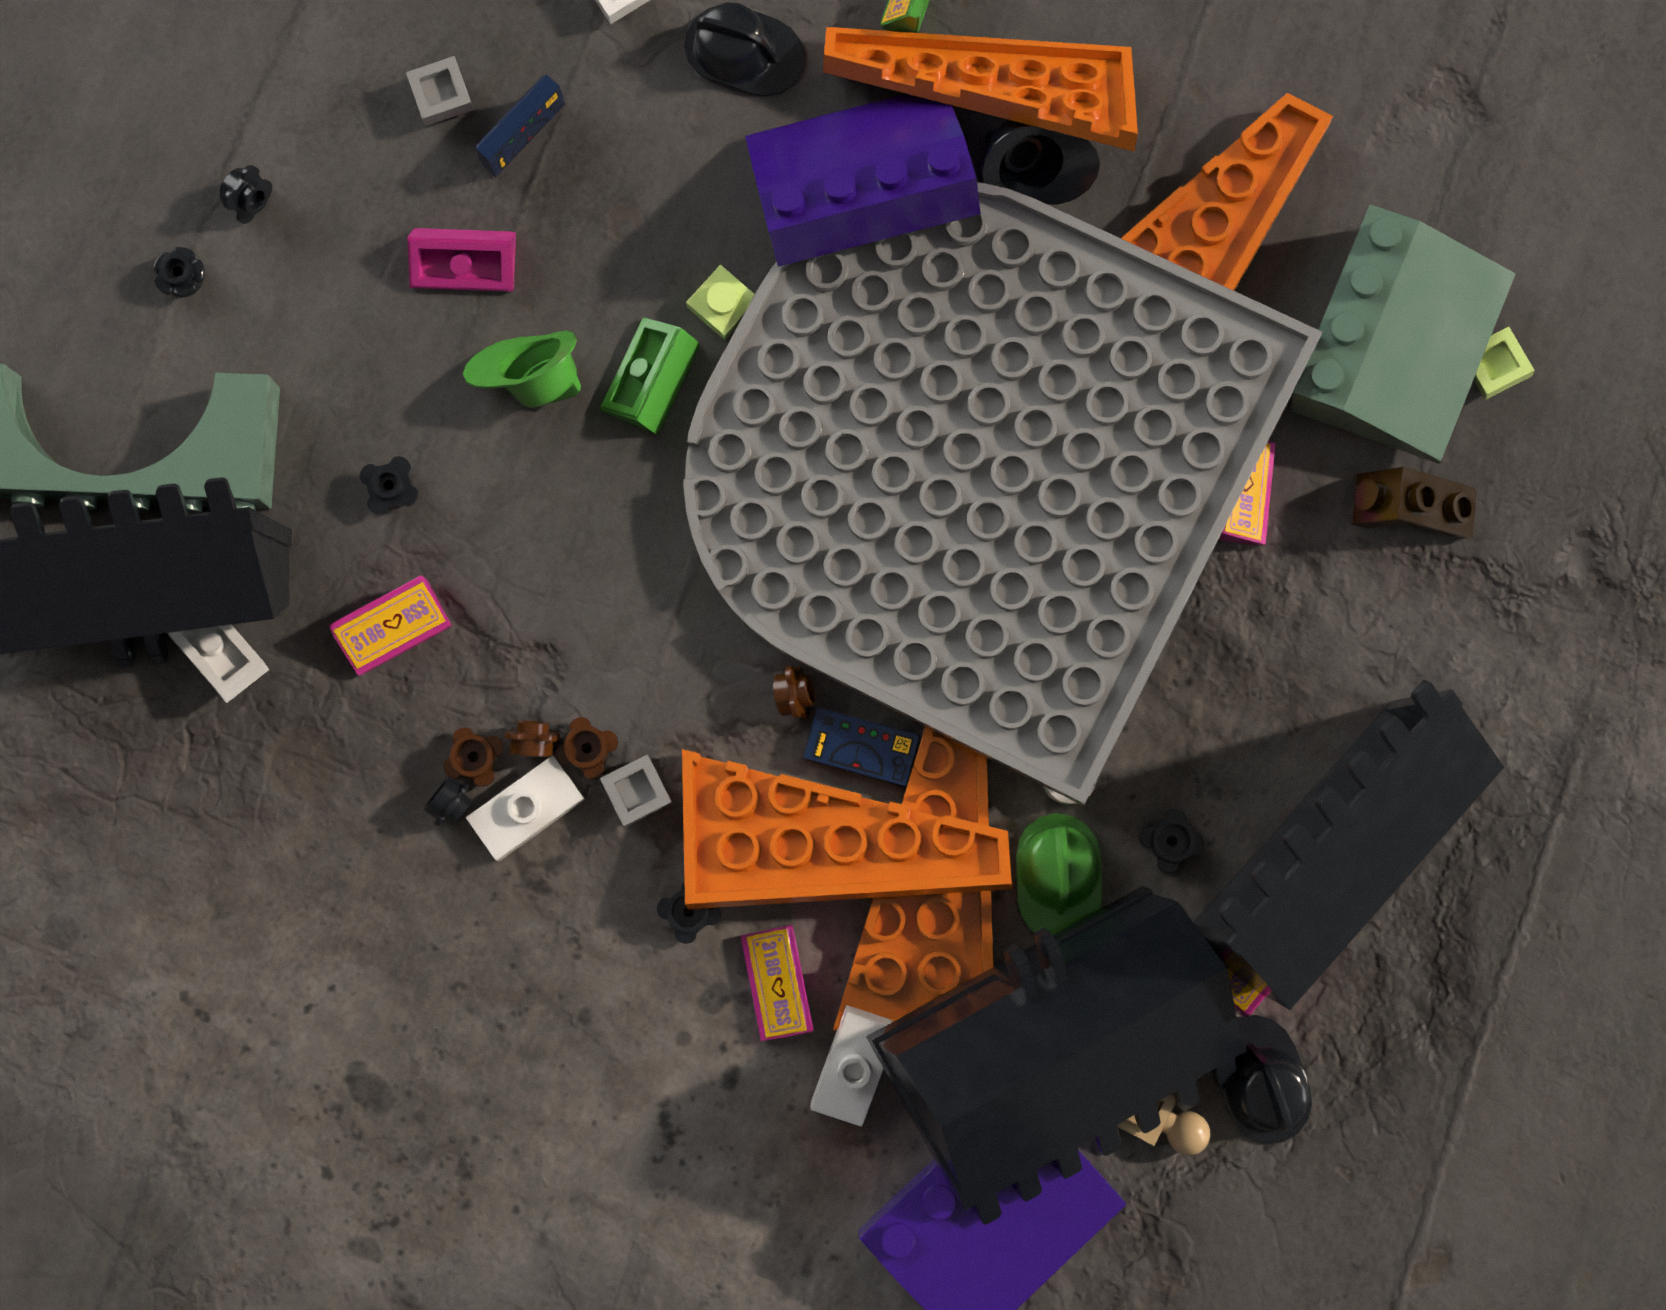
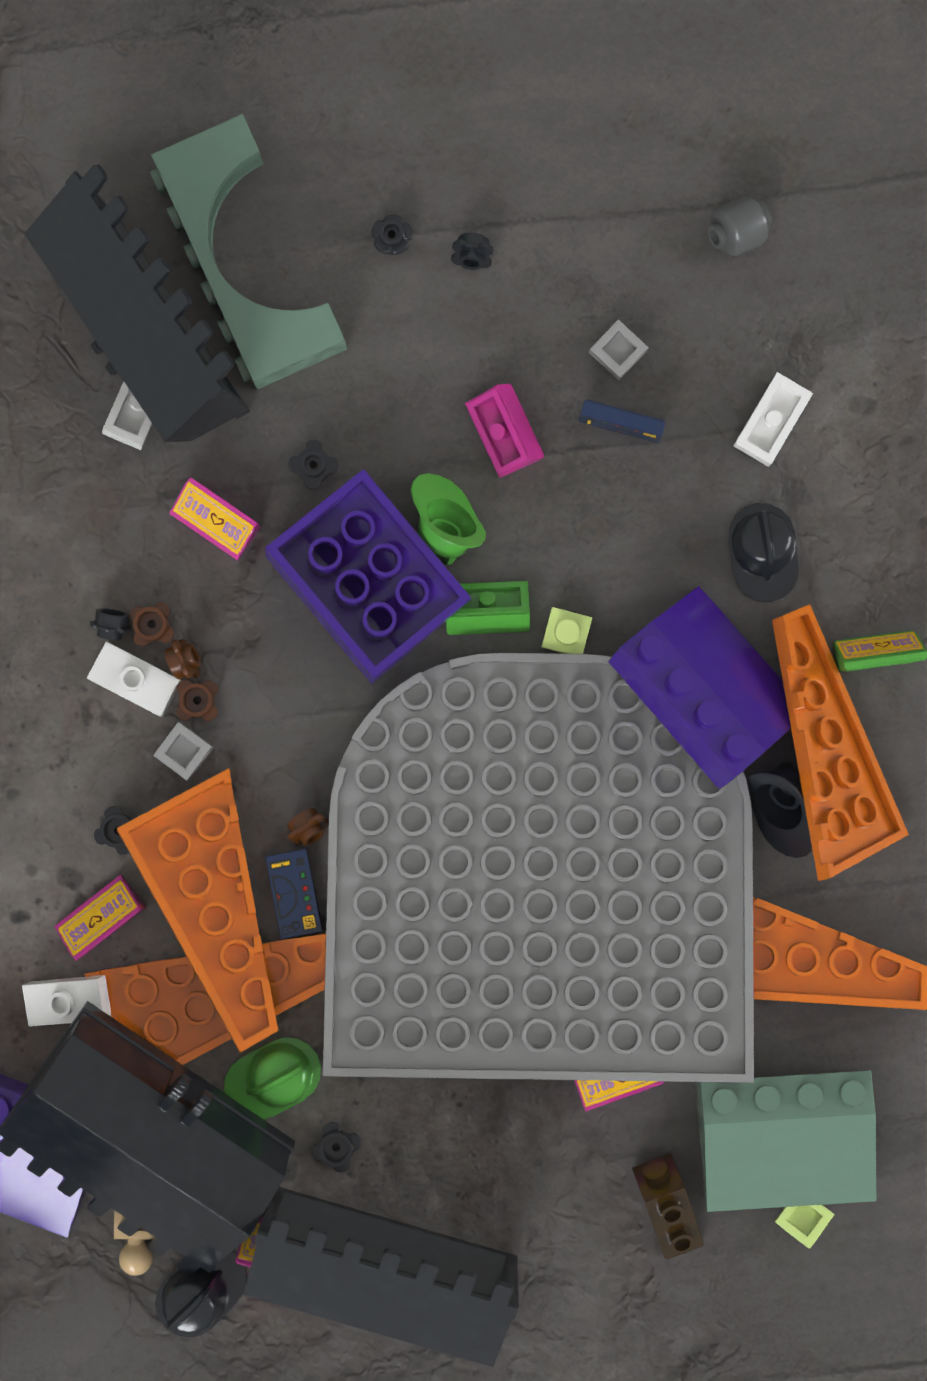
camera: 65 degrees right, 5 degrees up
(545, 484) = (366, 576): none -> dark purple slope

